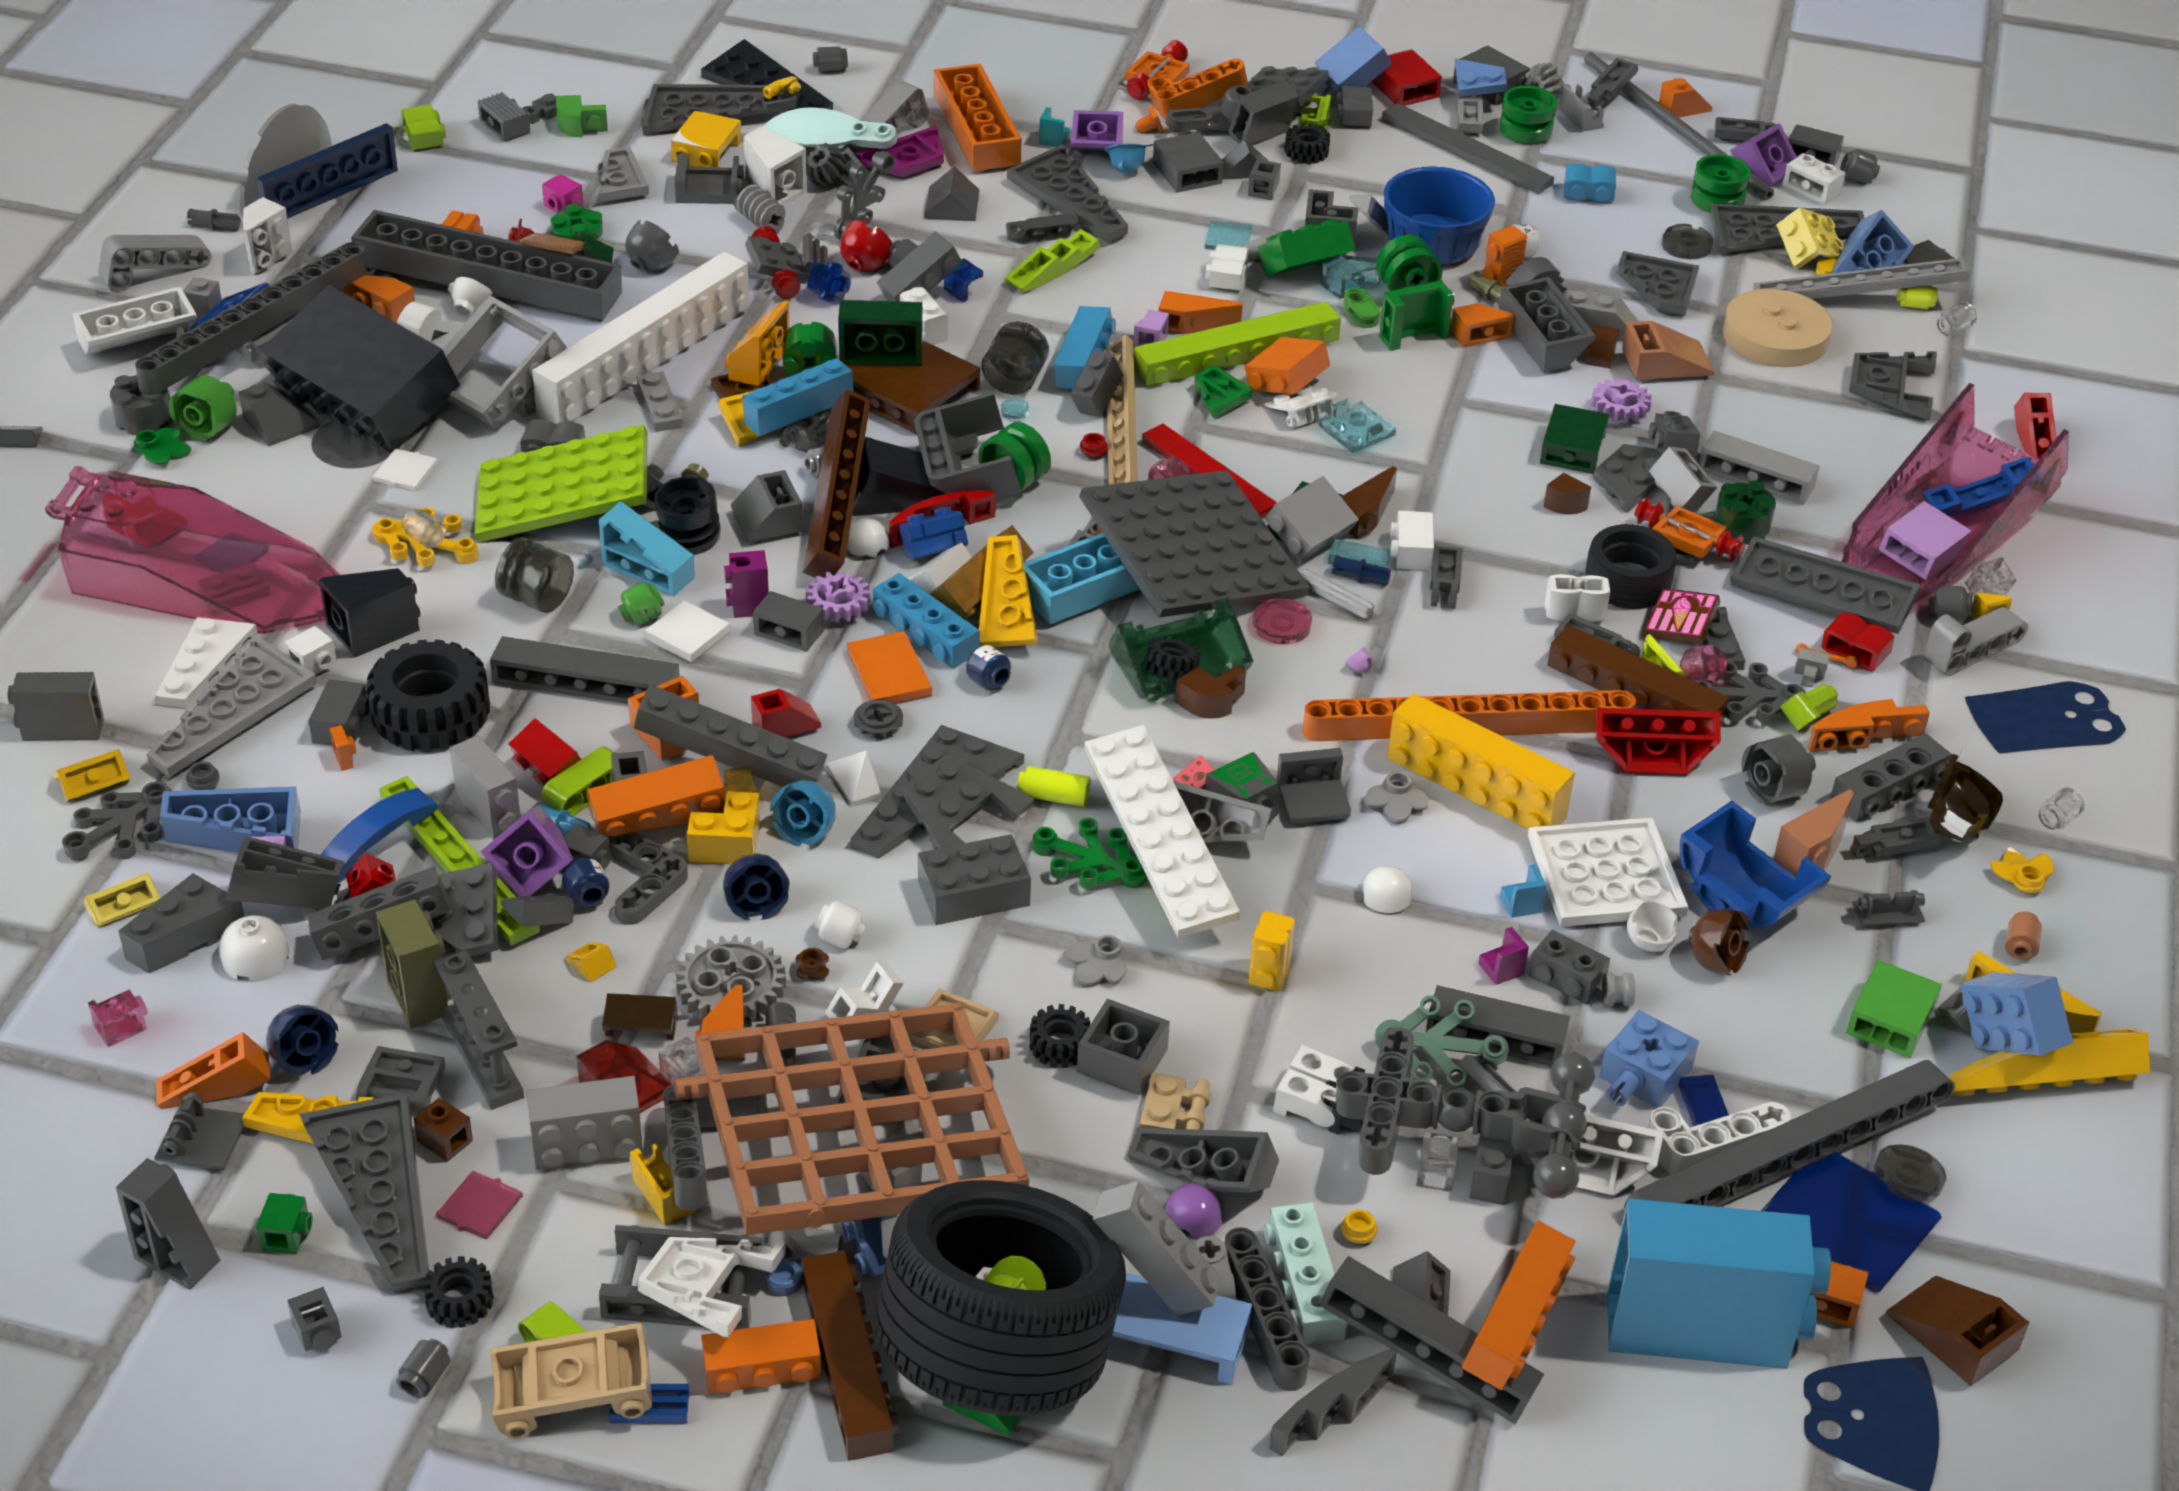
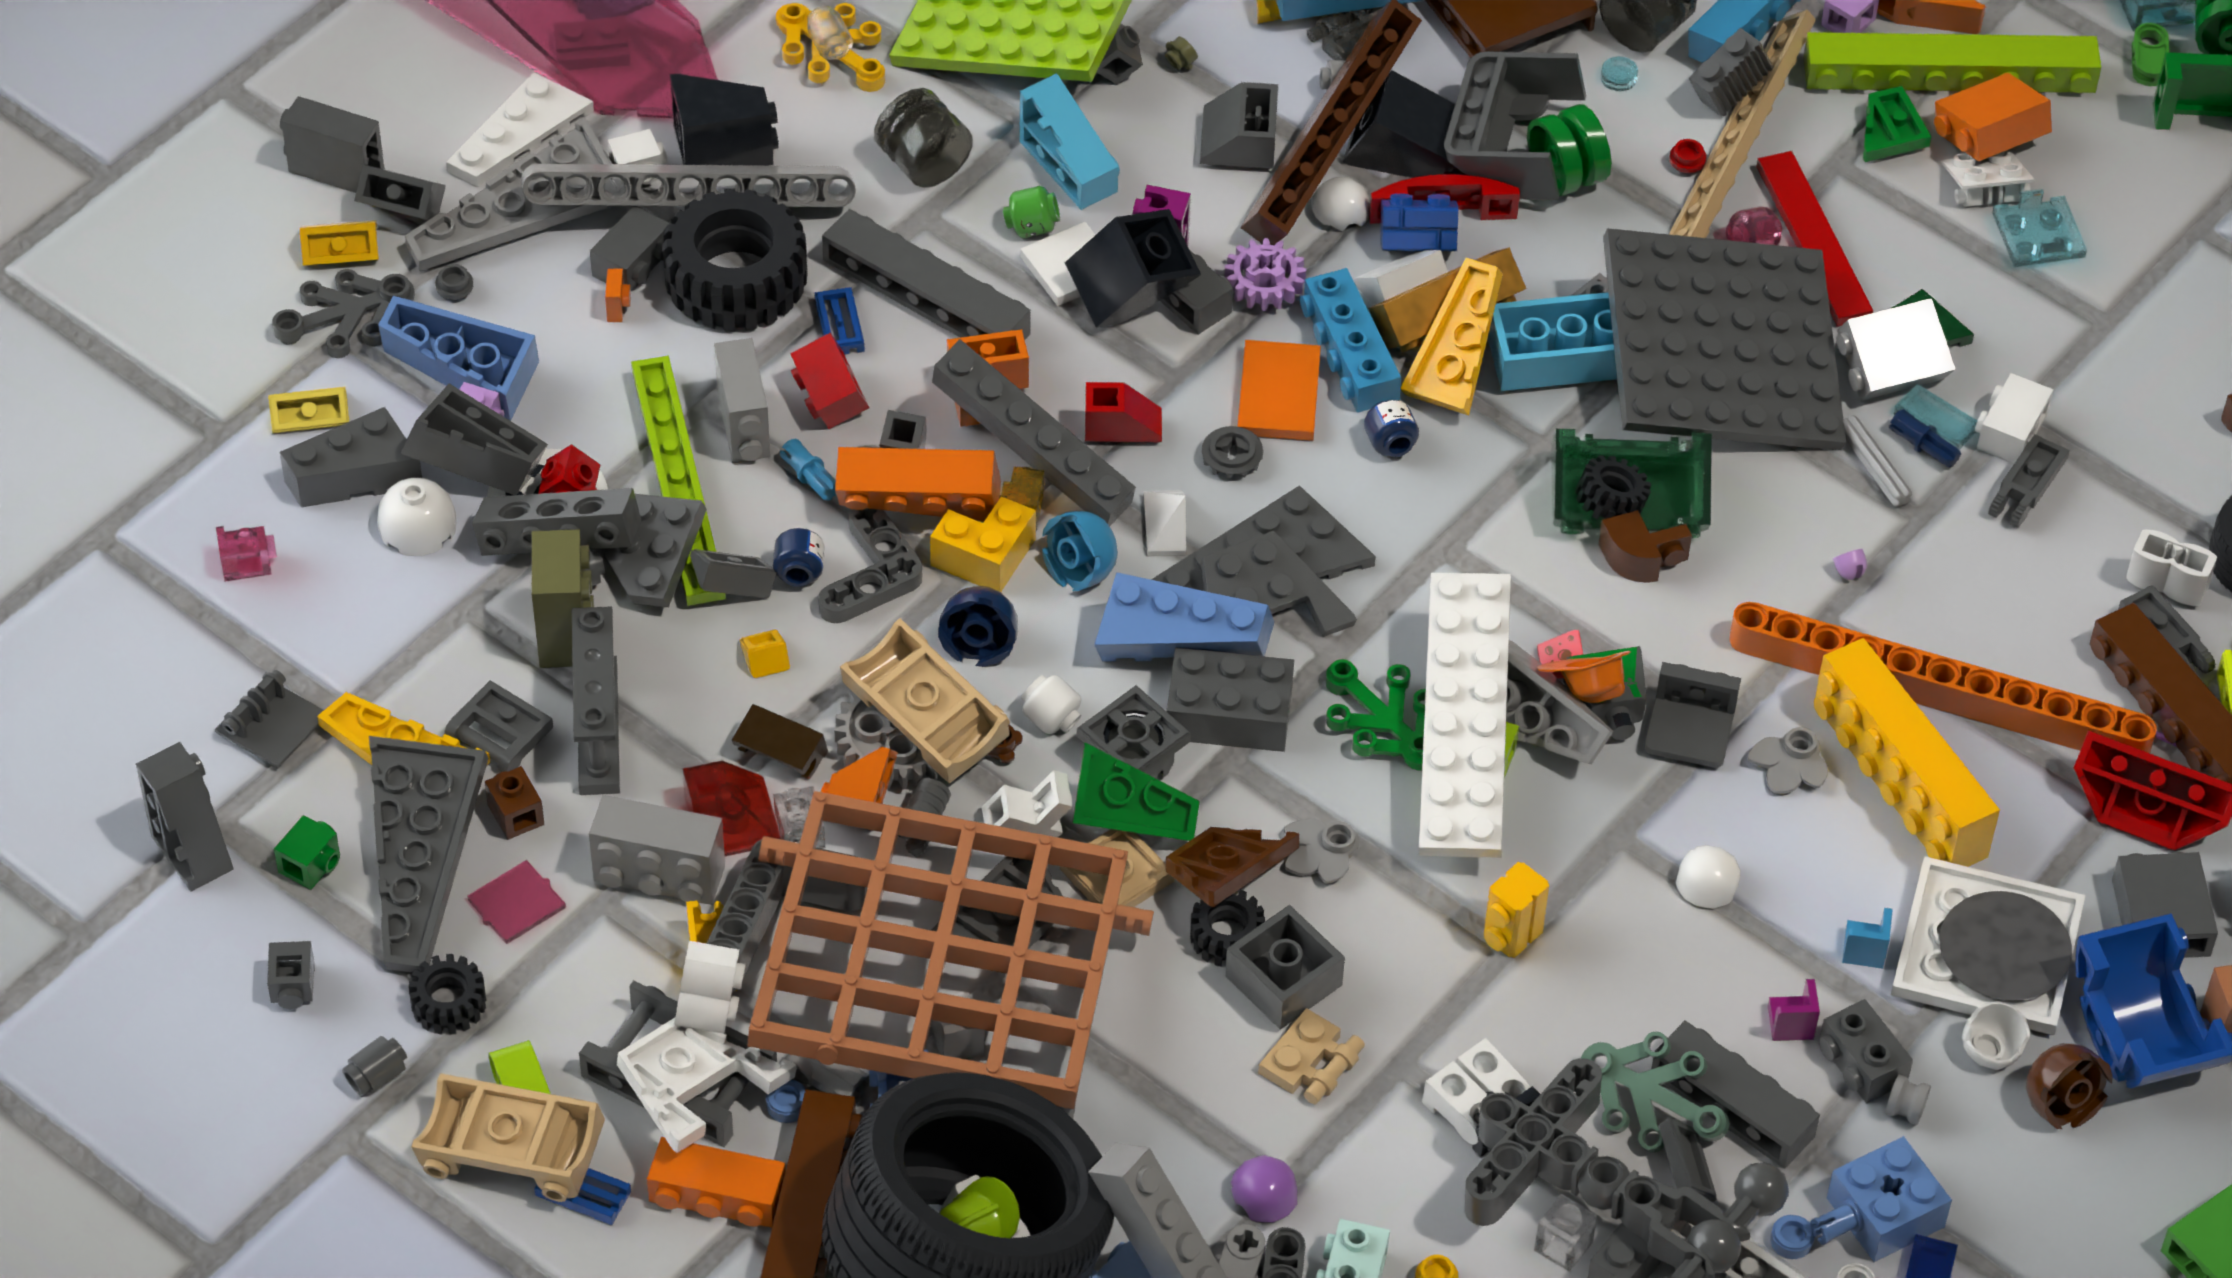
camera: 25 degrees right, 10 degrees up
(128, 724) = (399, 192): none -> dark grey brick
(217, 1074) = (316, 655): orange slope -> none
(302, 1039) = (414, 646): dark blue cylinder -> none
(351, 655) = (672, 175): none -> light grey beam
(376, 824) = (605, 408): blue slope -> none
(518, 721) = (833, 295): none -> blue tile
(529, 852) = (750, 500): medium lavender slope -> none
(570, 787) = (852, 424): lime beam -> none
(588, 844) = (817, 511): dark grey brick -> none
(688, 512) = (1138, 108): black wheel -> none
(690, 1202) = (707, 987): none -> white brick
(742, 612) = (1131, 266): none -> black slope
(748, 945) = (927, 701): none -> tan piece
(893, 836) = (1154, 617): none -> medium blue wedge
(919, 933) = (1134, 737): none -> dark grey piece
(941, 967) = (1129, 800): none -> green wing
(1036, 988) = (1226, 860): none -> reddish brown wing
(1055, 786) = (1387, 610): neon yellow brick -> none
(1209, 1157) = (1309, 1136): dark grey wedge -> none
(1238, 779) = (1592, 678): none -> orange piece
(1282, 620) = (1787, 476): clear pink tile -> none
(1370, 501) = (1989, 345): reddish brown slope -> none
(1597, 1106) = (1792, 1237): none -> medium blue tile
(1621, 866) = (2005, 945): none -> flat silver sticker
(1698, 795) = (2167, 885): none -> dark grey brick

